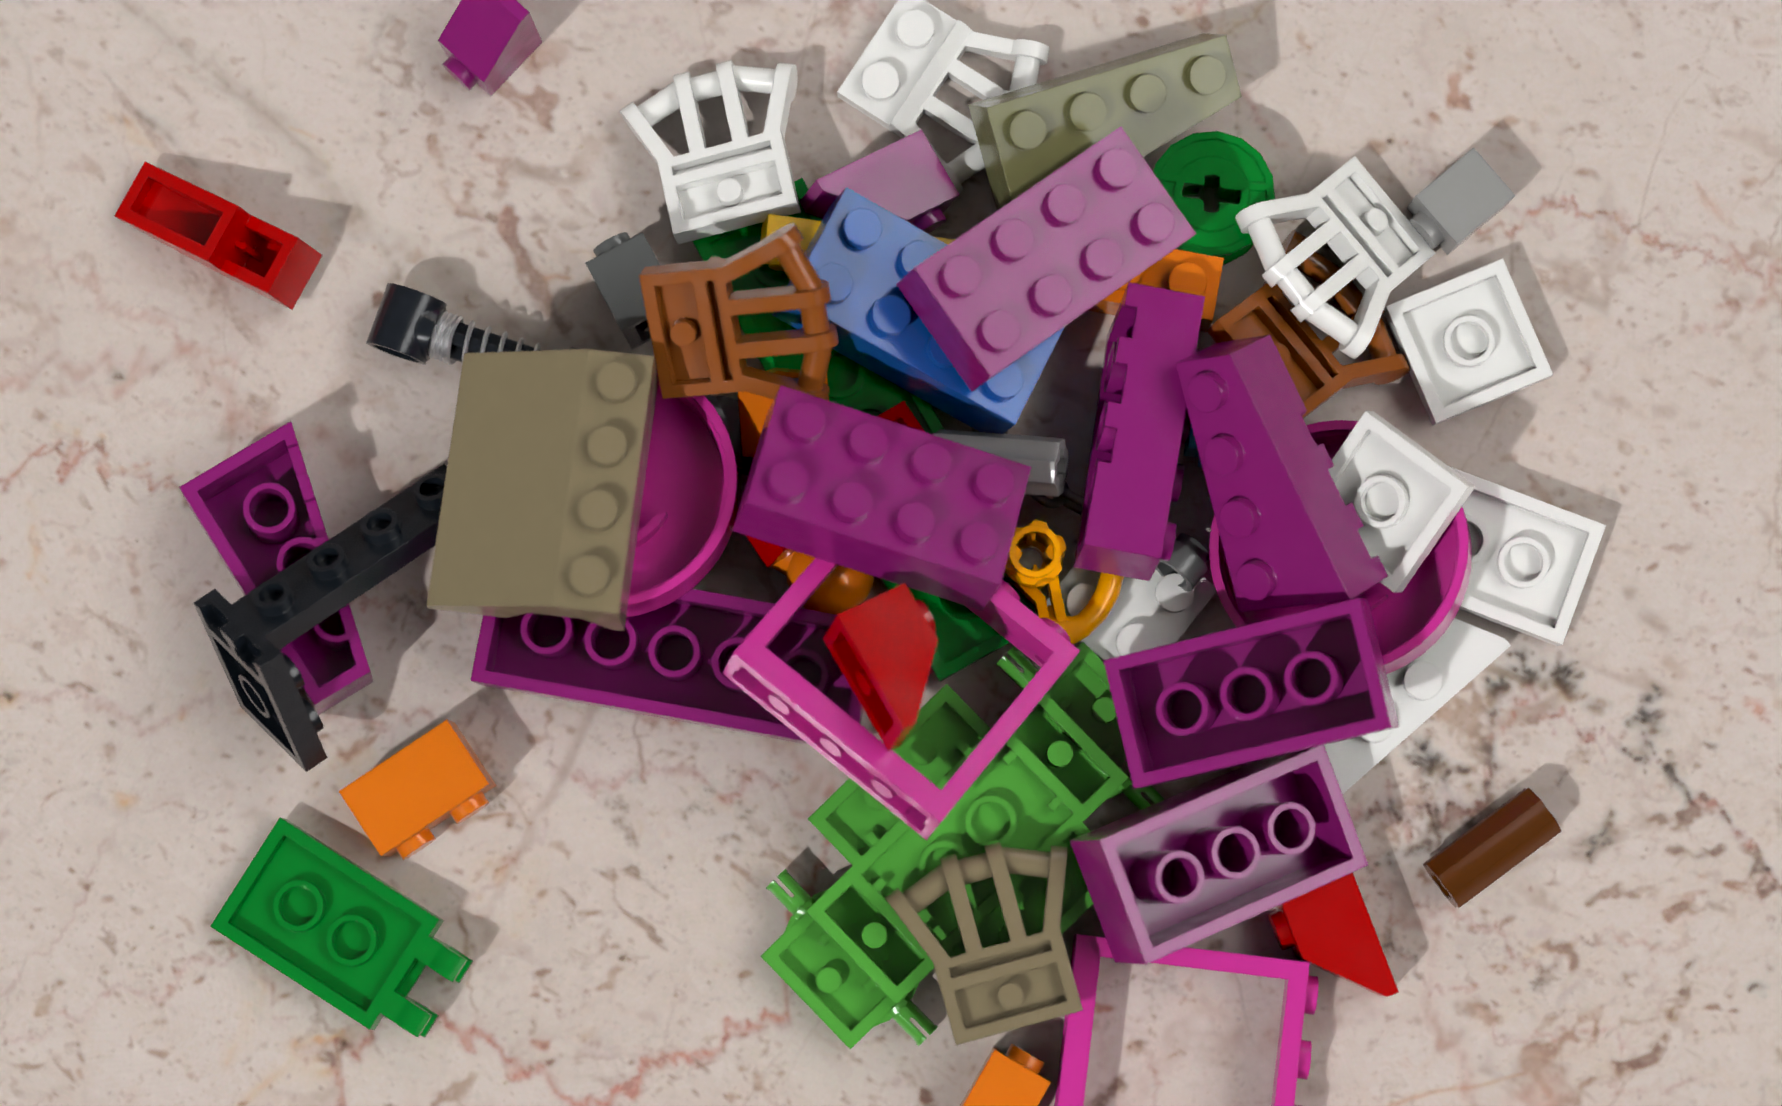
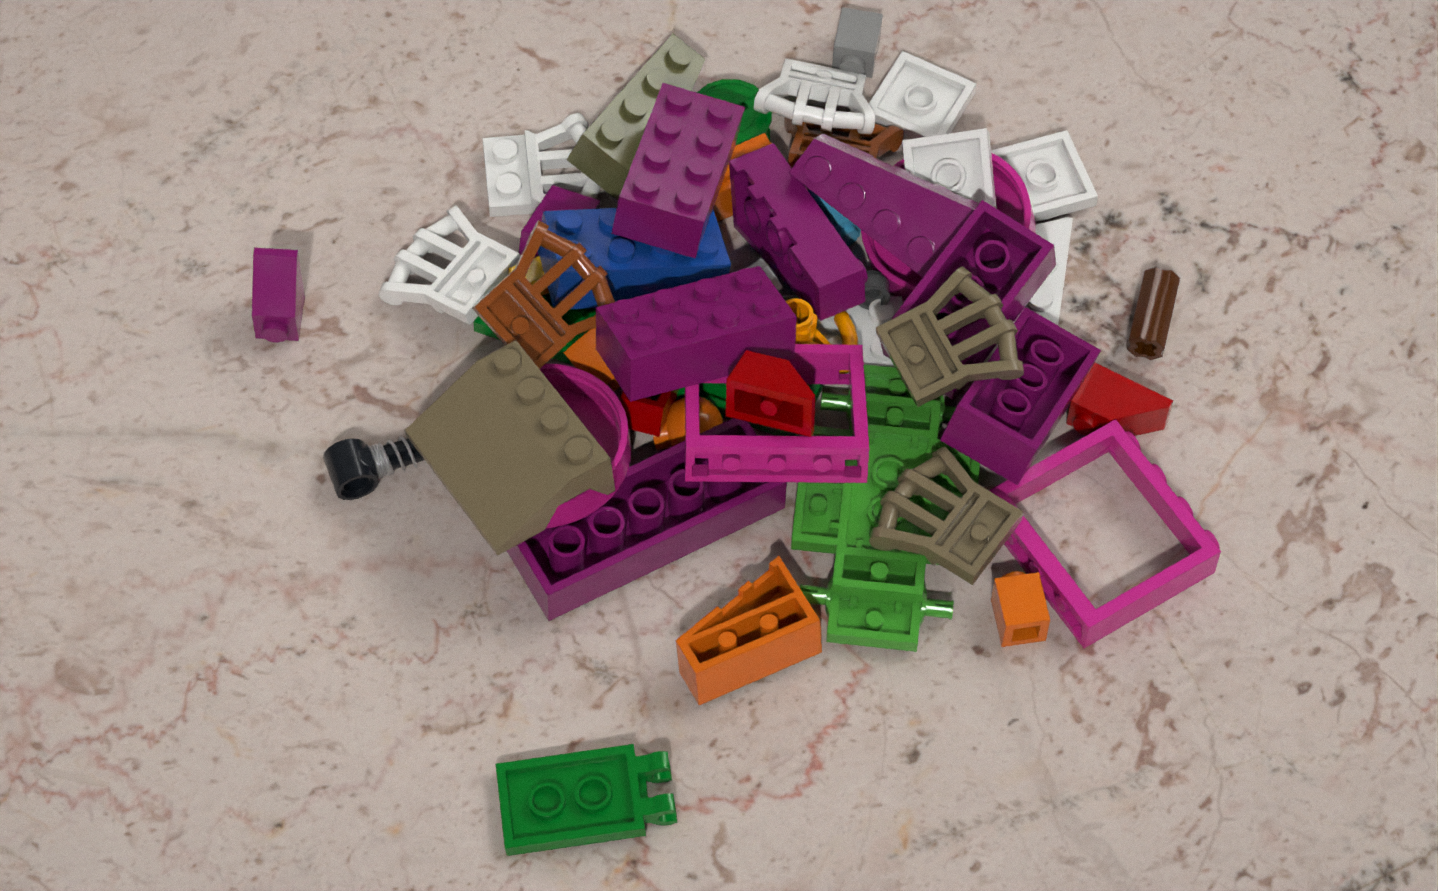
camera: 45 degrees left, 25 degrees down
(219, 235) = (204, 500): red slope -> none
(260, 522) = (389, 629): magenta wedge -> none
(303, 595) = (417, 653): black bracket -> none
(418, 791) = (562, 690): orange brick -> none
(617, 277) = (459, 345): dark grey brick -> none
(668, 895) = (749, 637): none -> orange wedge
(1123, 739) = (927, 358): none -> dark tan plate

